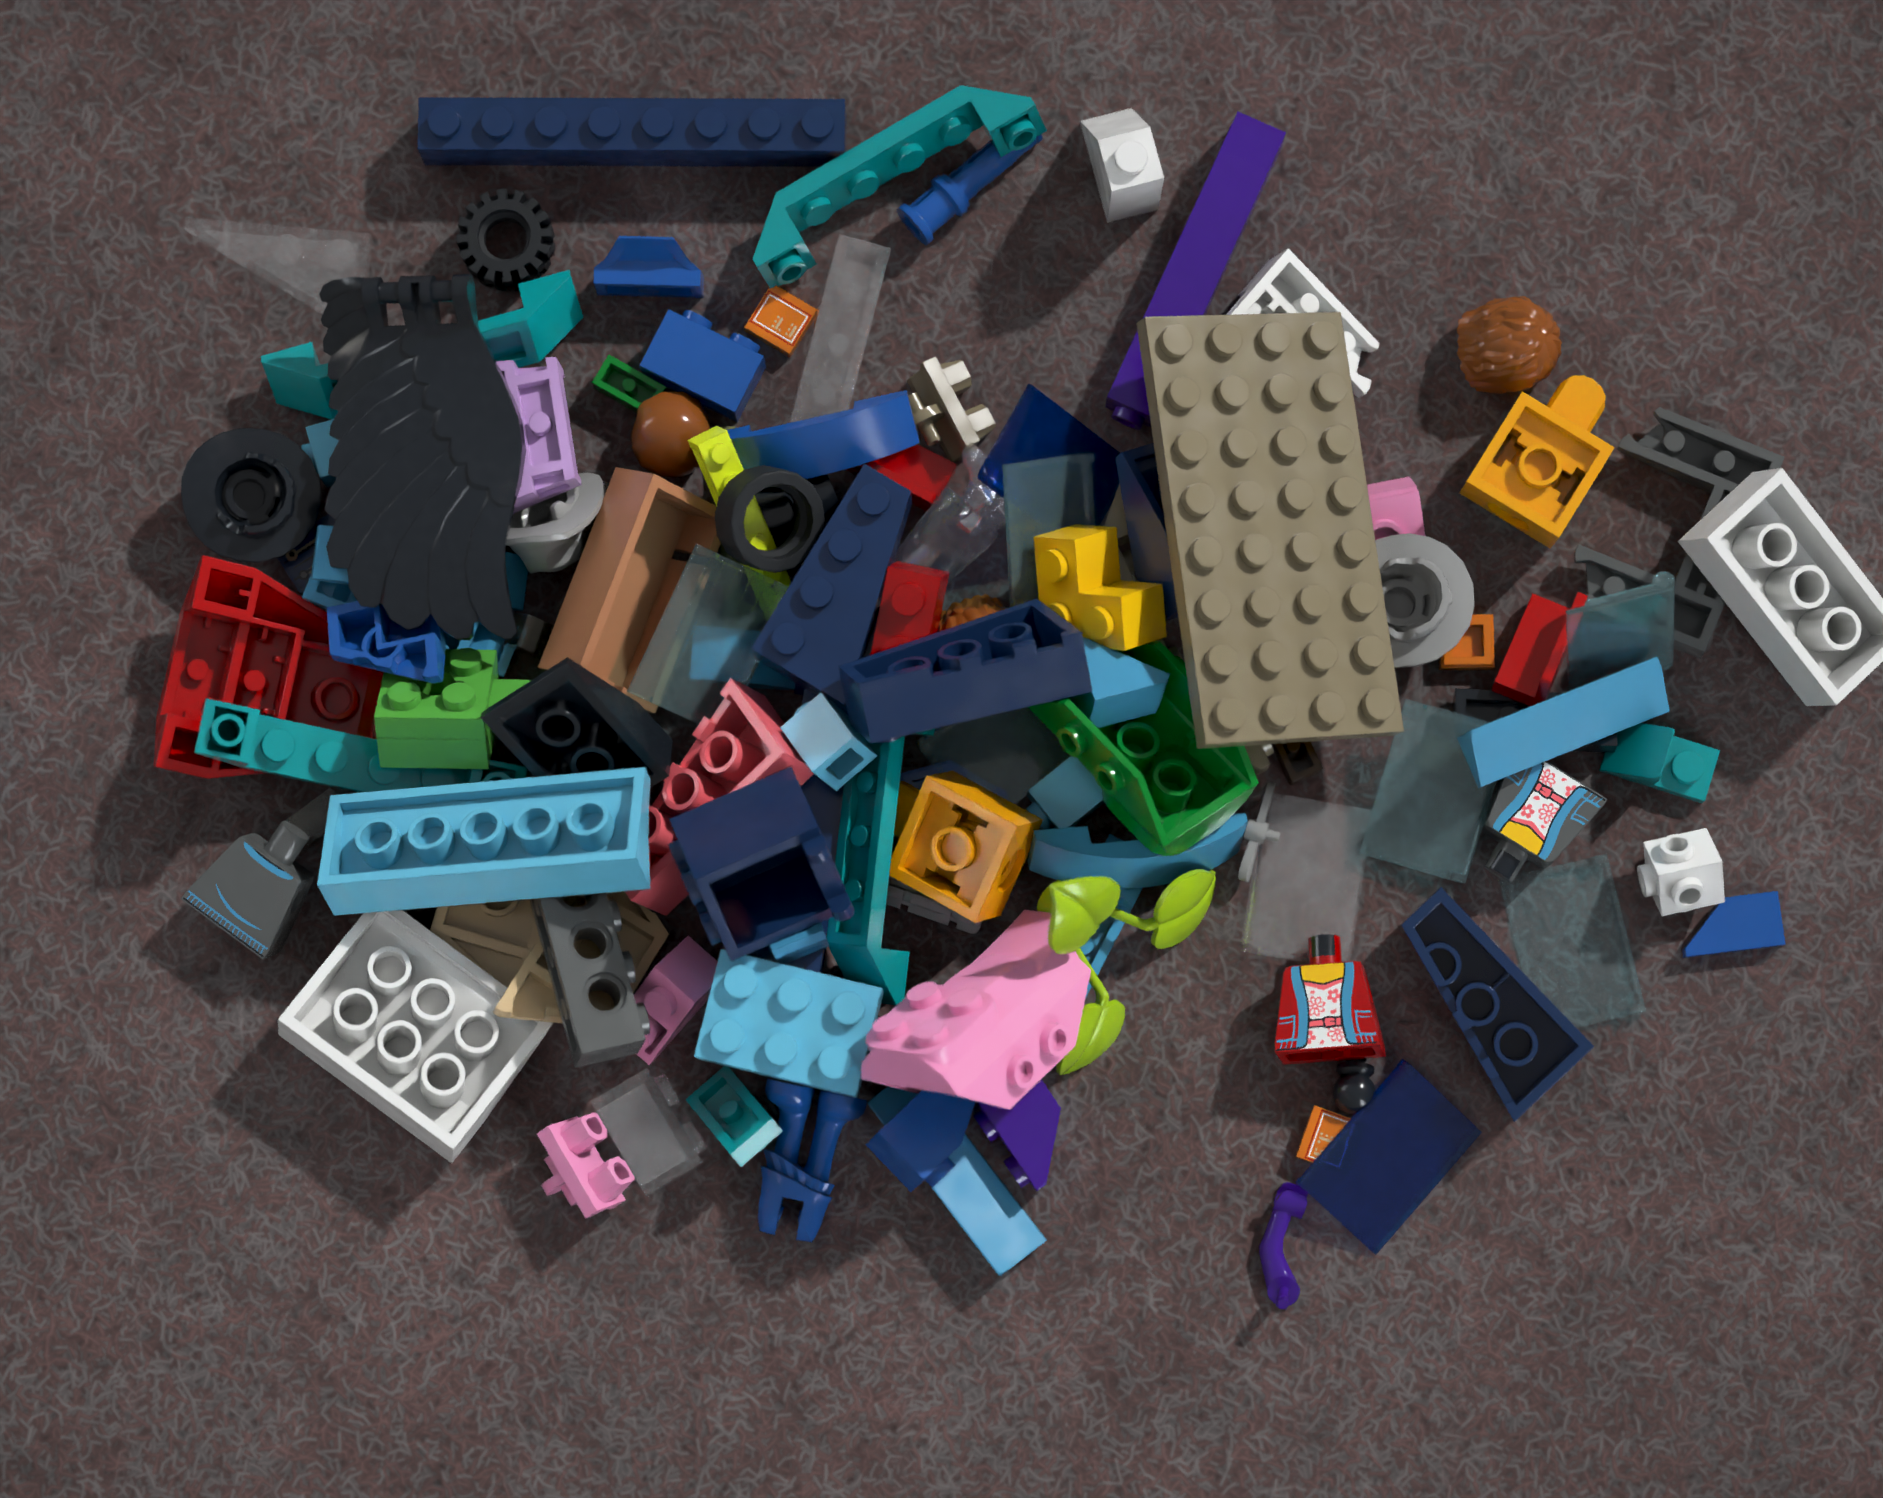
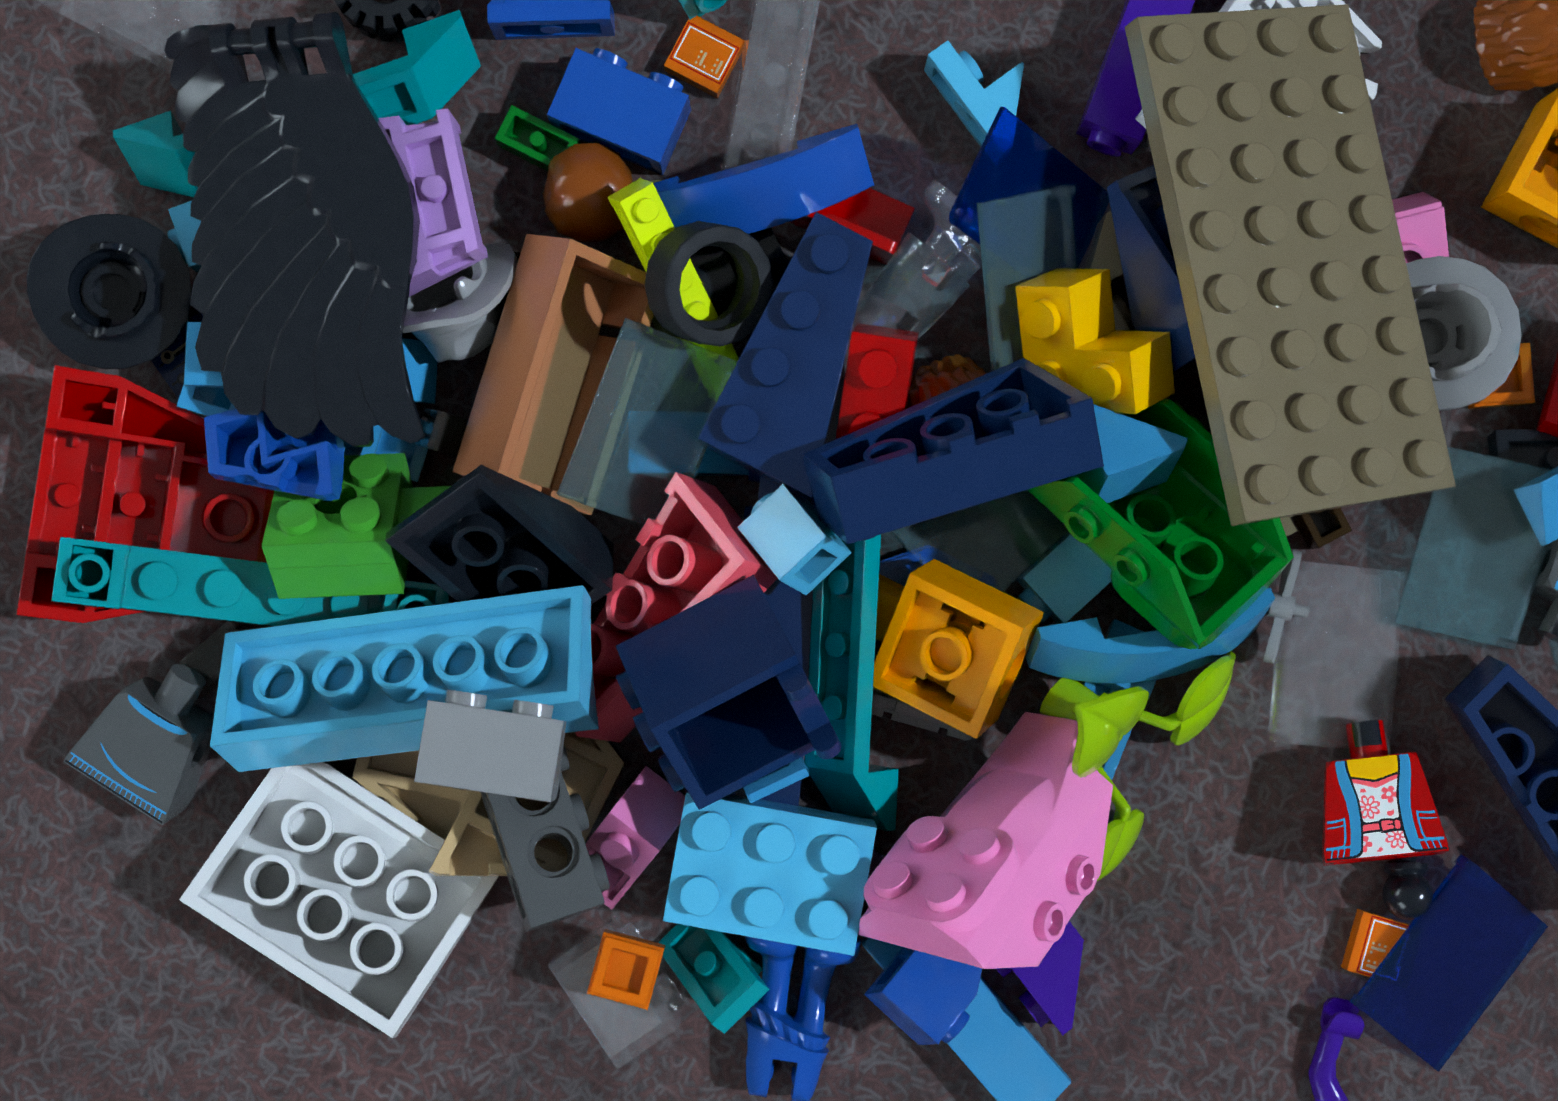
camera: 10 degrees left, 5 degrees up
(561, 893) = (491, 748): none -> light grey slope
(579, 1167) = (543, 1037): bright pink hips -> none
(659, 1106) = (626, 969): none -> orange tile
(940, 413) = (893, 147): dark tan hips -> none
(1003, 357) = (959, 83): none -> medium azure slope

